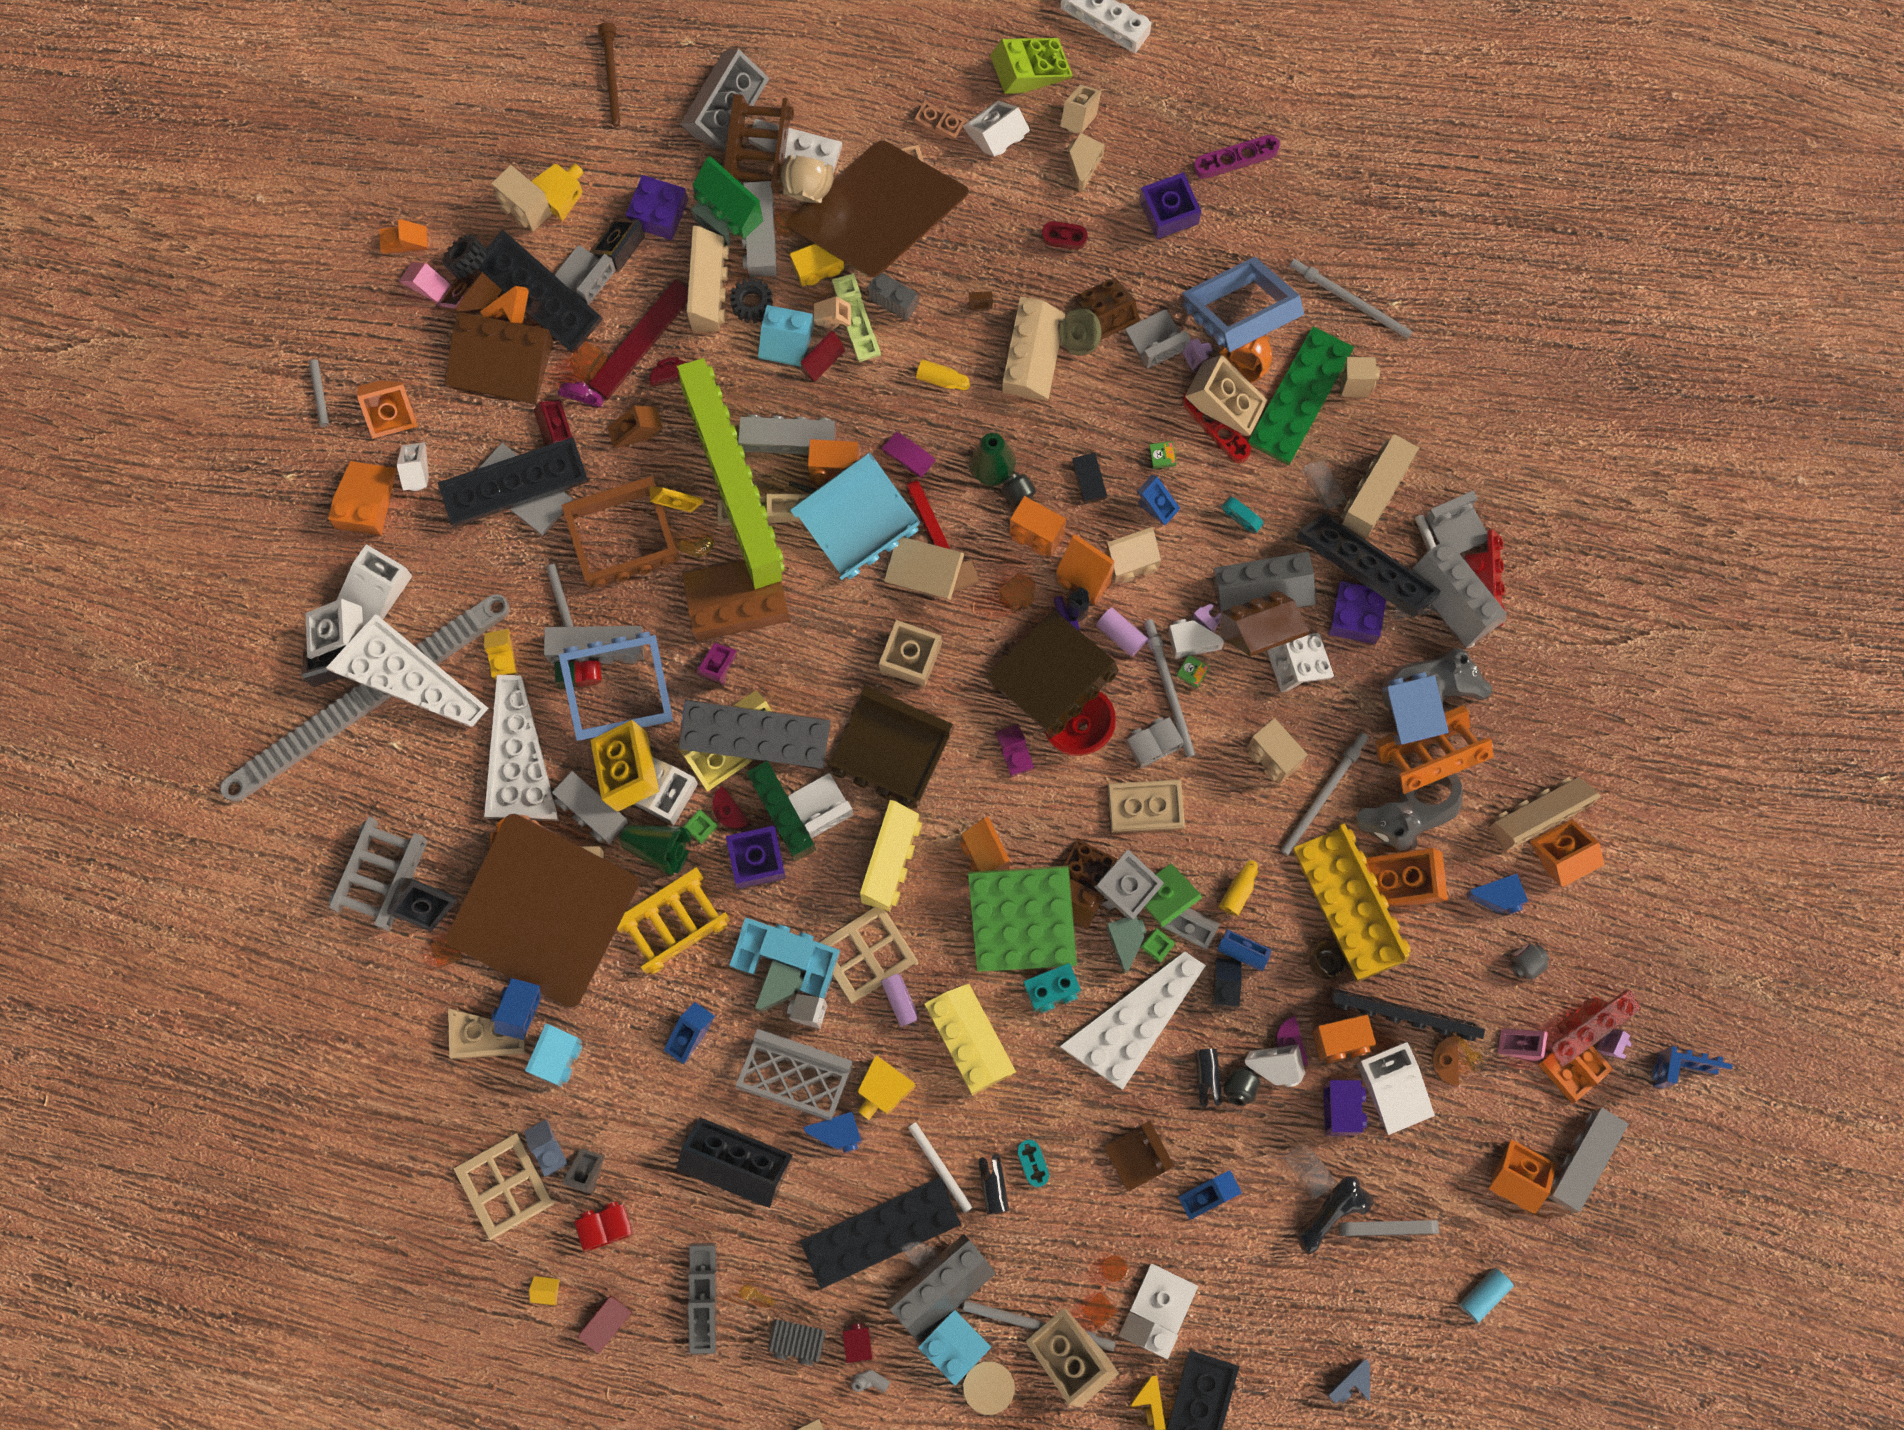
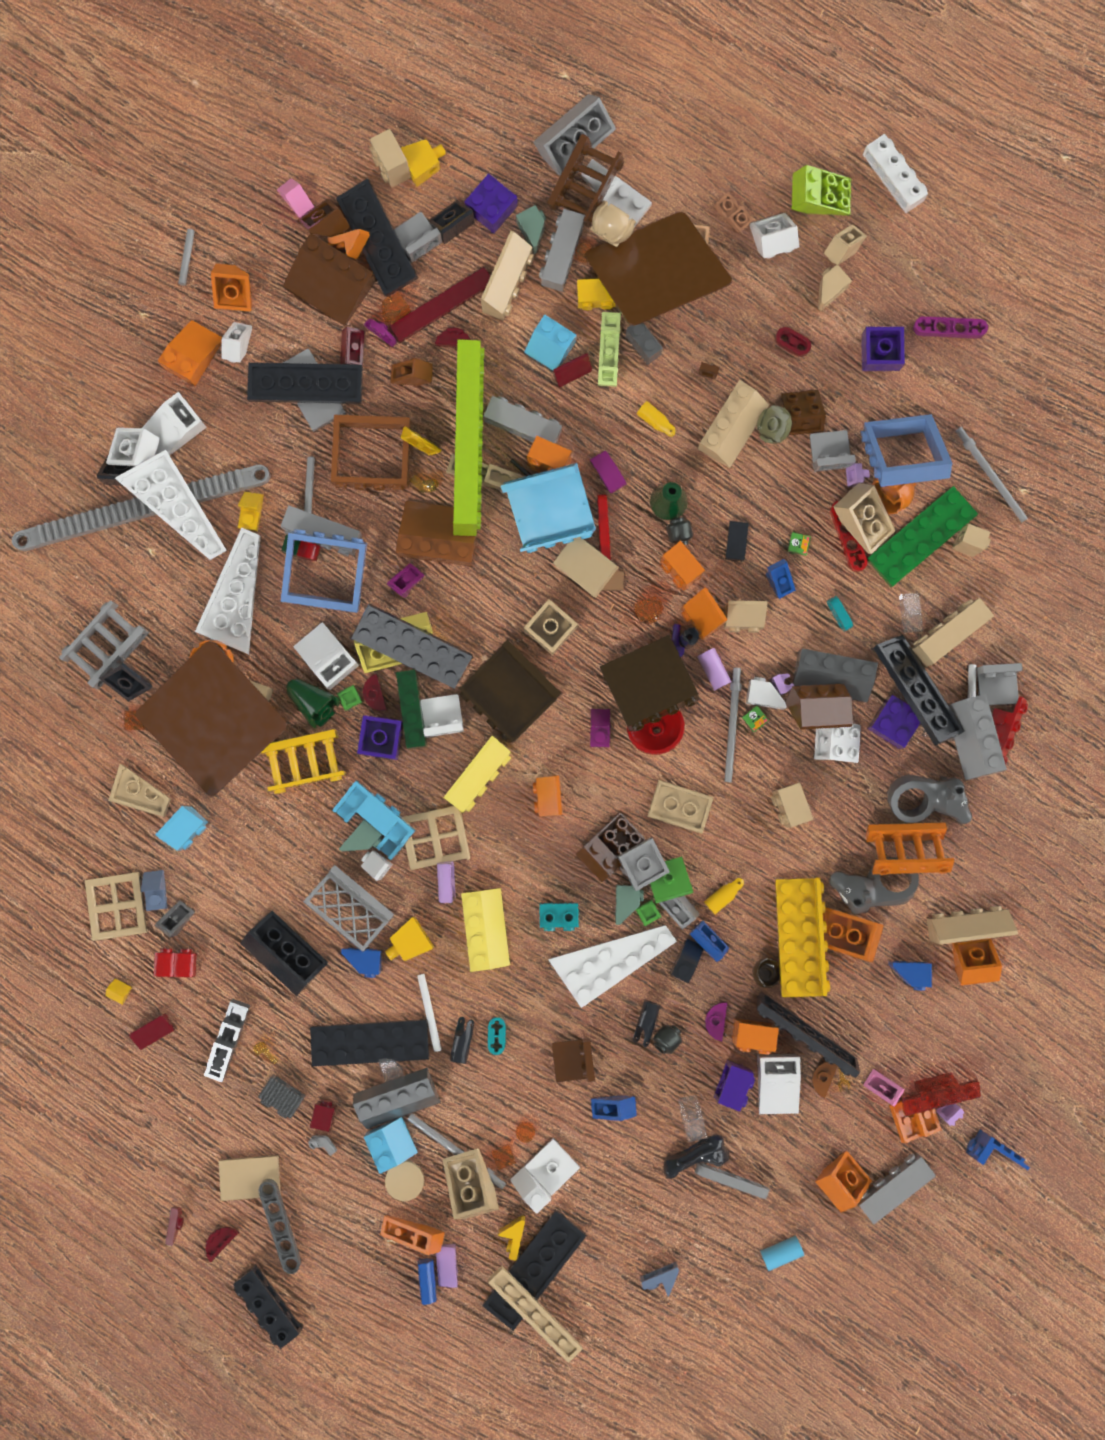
camera: 20 degrees right, 10 degrees up
(404, 238) = (291, 156): orange slope -> none
(464, 256) = (331, 189): black tyre -> none
(516, 1009) = (167, 783): blue brick -> none
(589, 809) = (273, 654): light grey brick -> none
(607, 33) = (504, 46): reddish brown piece -> none
(624, 766) = (308, 634): yellow brick -> none
(688, 1032) = (286, 847): blue slope -> none
(727, 199) = (544, 218): green slope -> none
(744, 289) = (531, 294): black tyre -> none
(832, 313) = (592, 338): light nougat brick -> none
(1022, 918) = (556, 858): bright green plate -> none
(1154, 742) = (705, 762): light grey brick -> none
(1278, 1064) = (699, 1034): white slope -> none
(1350, 756) = (846, 826): light grey bar -> none
(1416, 708) = (908, 815): medium blue panel -> none
(1529, 961) = (914, 1029): dark grey head -> none

